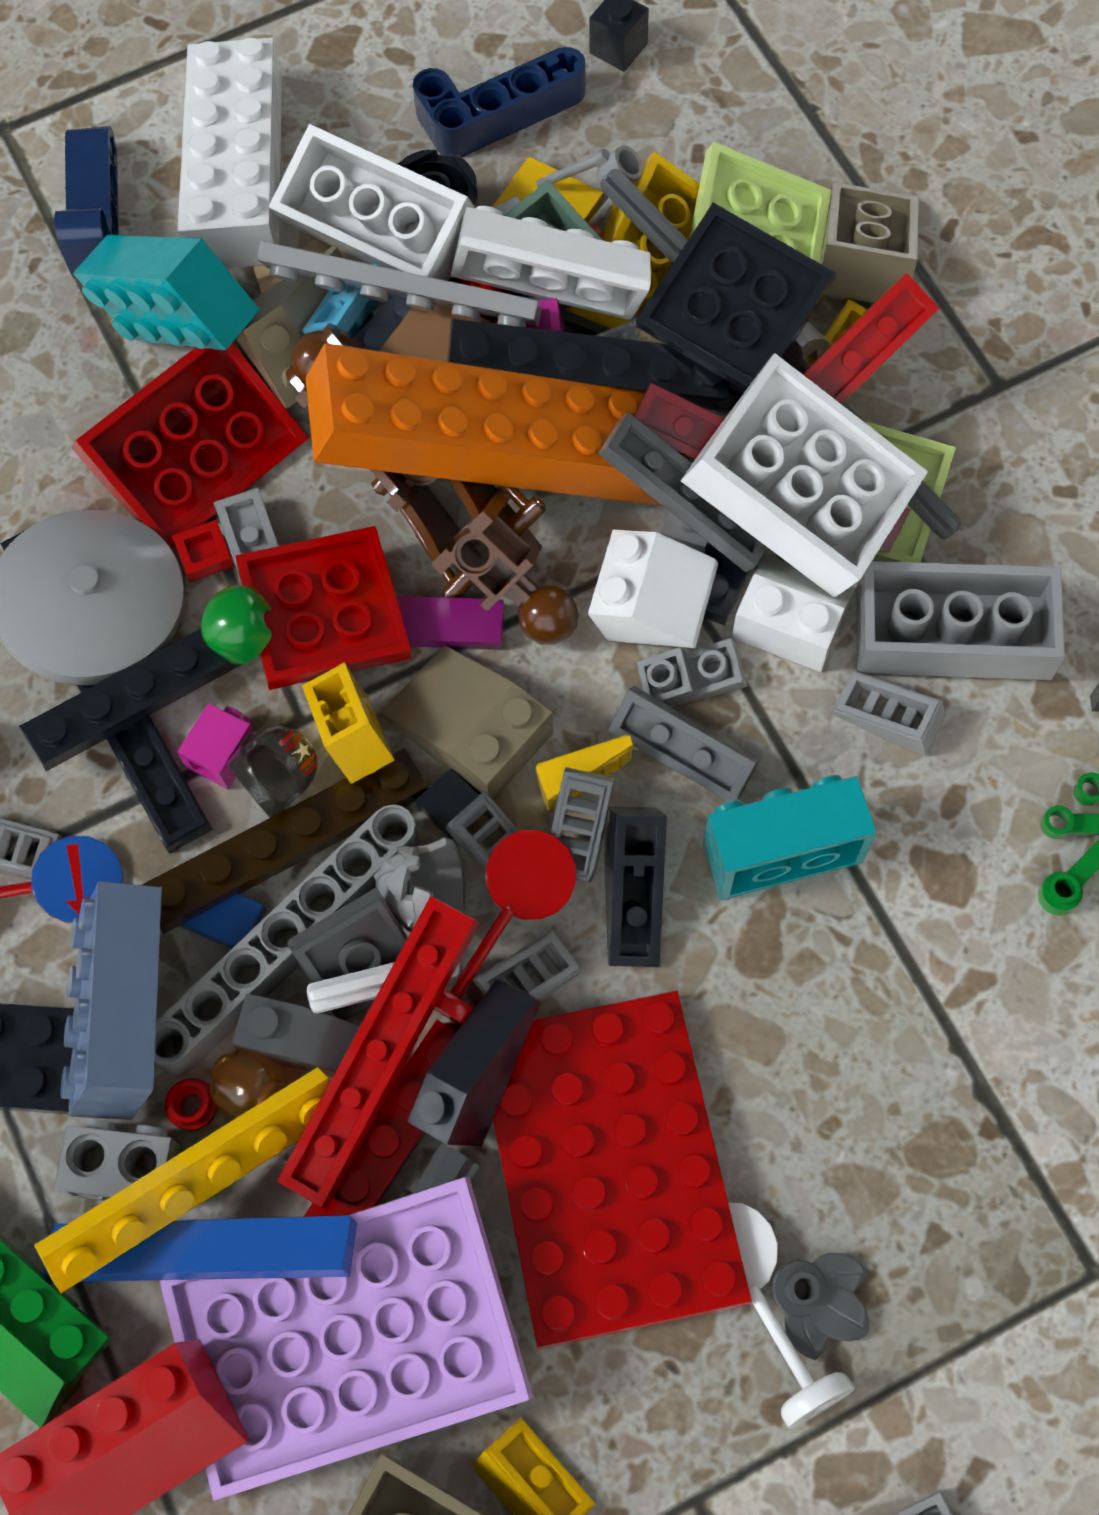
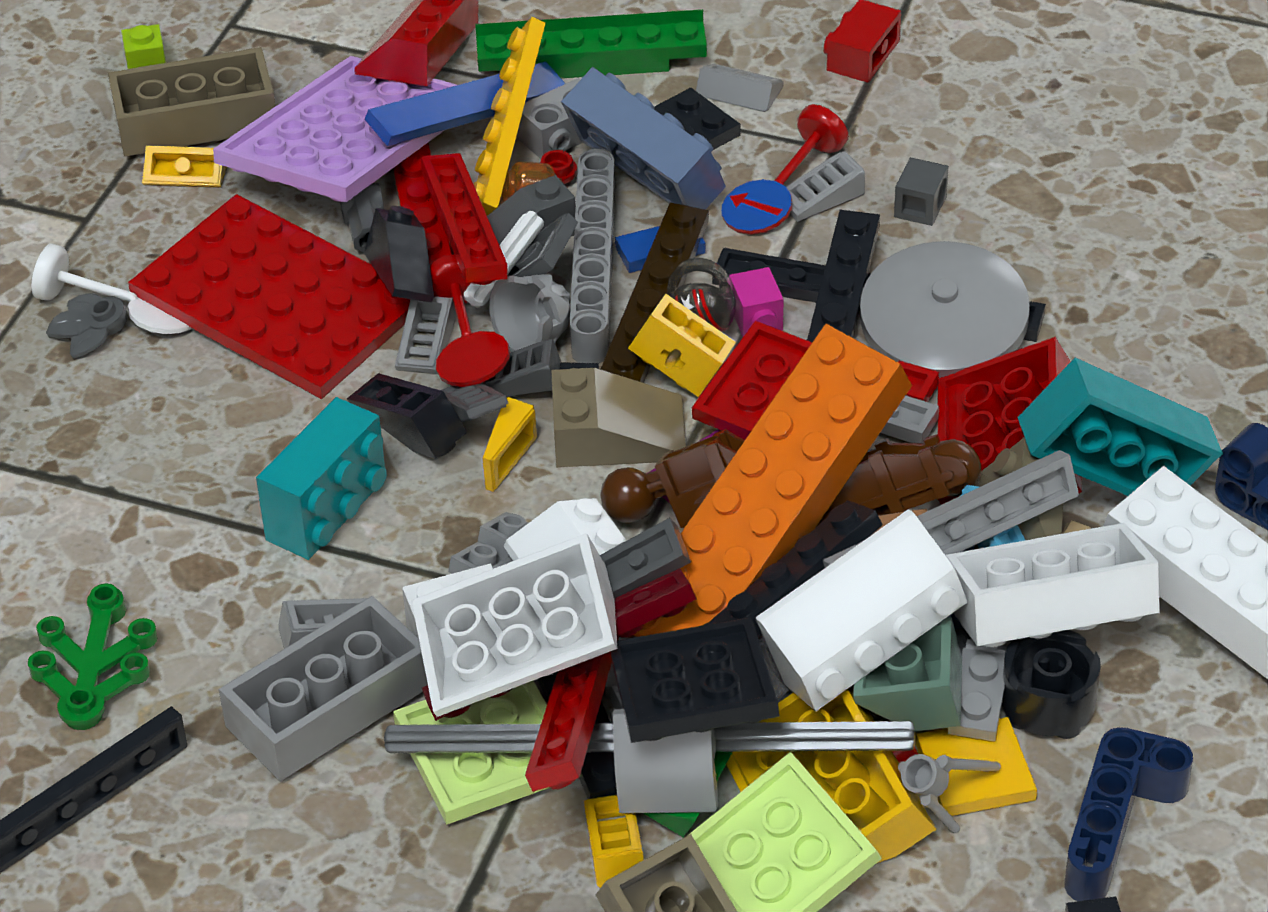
camera: 135 degrees right, 25 degrees down
(235, 624) = (809, 318): green hair -> none
(684, 744) = (454, 502): dark grey plate -> none

